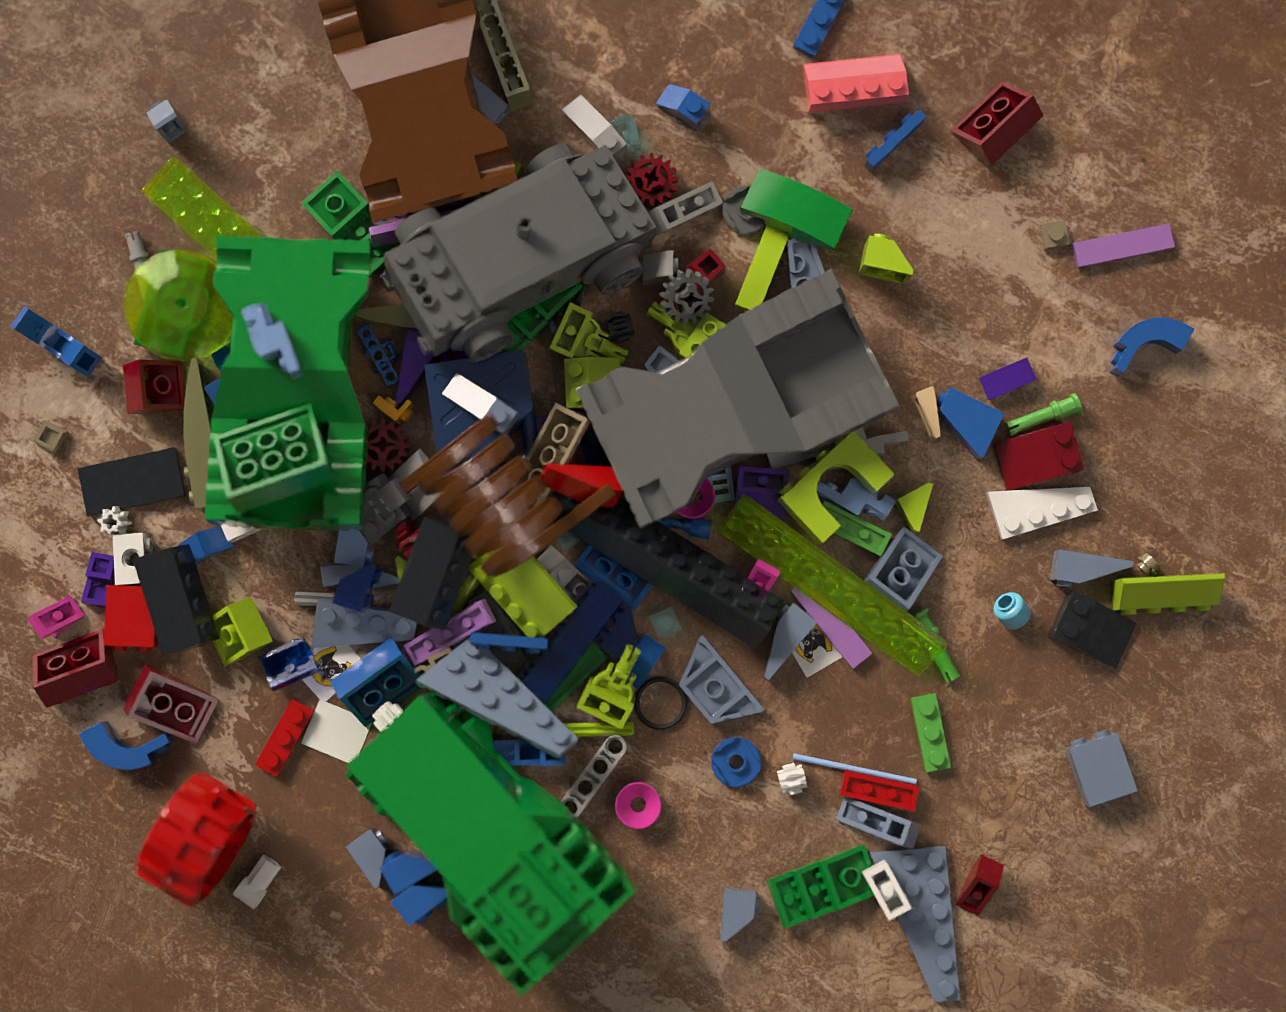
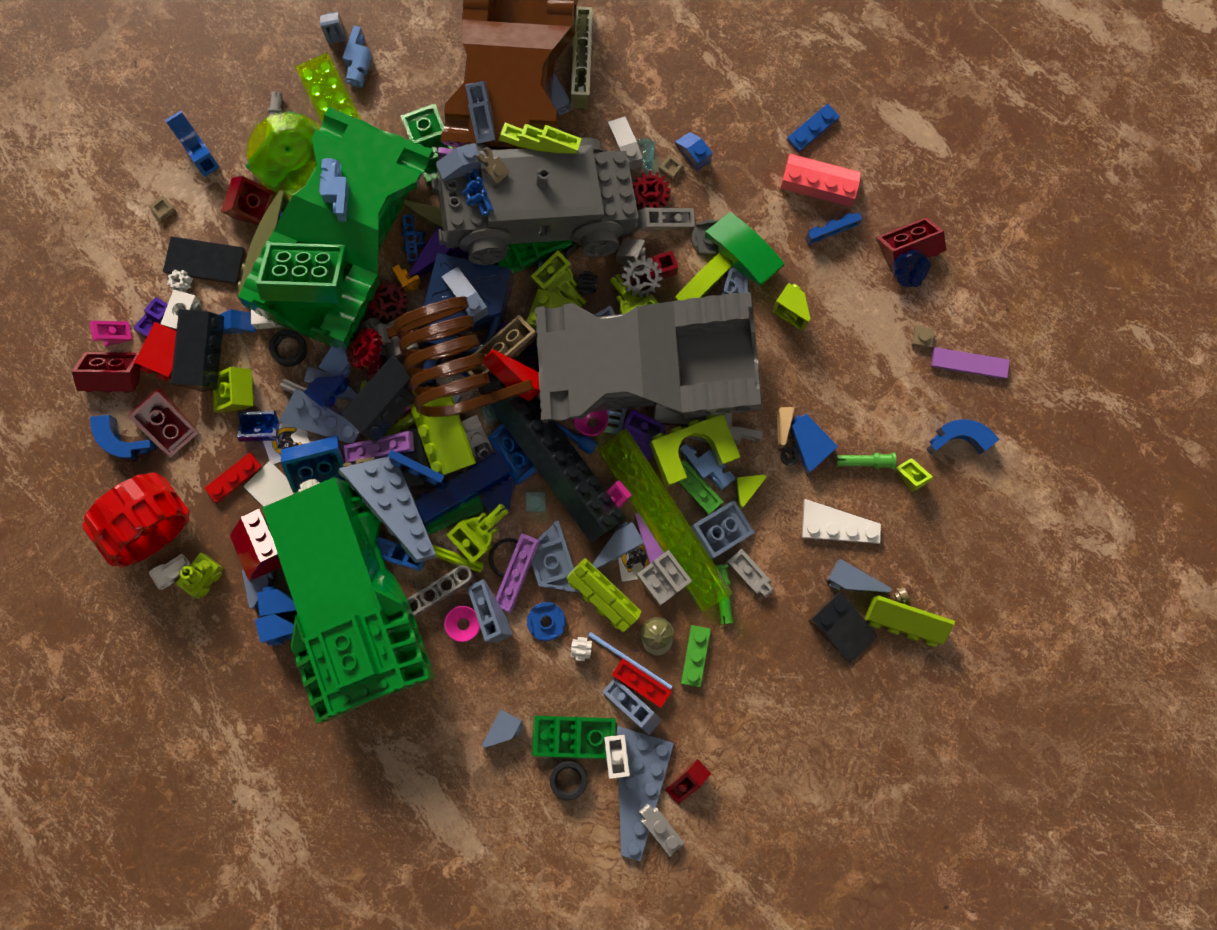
camera: 20 degrees right, 5 degrees down
(214, 149) = (357, 58): none -> medium blue plate
(289, 570) = (278, 337): none -> black tyre
(297, 872) = (199, 576): none -> lime brick
(350, 811) = (255, 545): none -> dark red slope
(385, 520) = (364, 348): none -> dark red gear
(410, 169) = (480, 111): none -> sand blue slope
(414, 248) = (458, 162): none -> sand blue slope
(442, 273) = (472, 187): none -> blue piece
(461, 238) = (494, 167): none -> dark tan plate
(509, 175) = (540, 140): none -> lime slope
(646, 660) = (510, 522): blue slope -> none
(664, 138) = (671, 167): none -> dark tan tile
(664, 779) = (489, 613): none -> sand blue slope
(677, 718) = (517, 572): none -> medium lavender tile
(794, 705) = (603, 595): none -> lime brick
(847, 957) = (568, 795): none -> black tyre
(857, 655) = (663, 578): none -> light grey slope
(875, 726) = (657, 636): none -> olive piece
(942, 449) = (784, 455): none -> black bush
(958, 608) = (751, 573): none -> light grey hinge
(970, 954) = (660, 829): none -> light grey hinge
(1008, 378) = (850, 424): dark purple slope -> none
(1012, 610) = (789, 590): medium azure head -> none
(1018, 162) = (919, 272): none -> clear blue plate
(1038, 456) = (851, 488): dark red slope -> none
(1100, 768) = (810, 731): sand blue brick -> none
(1107, 412) = (913, 475): none -> lime slope

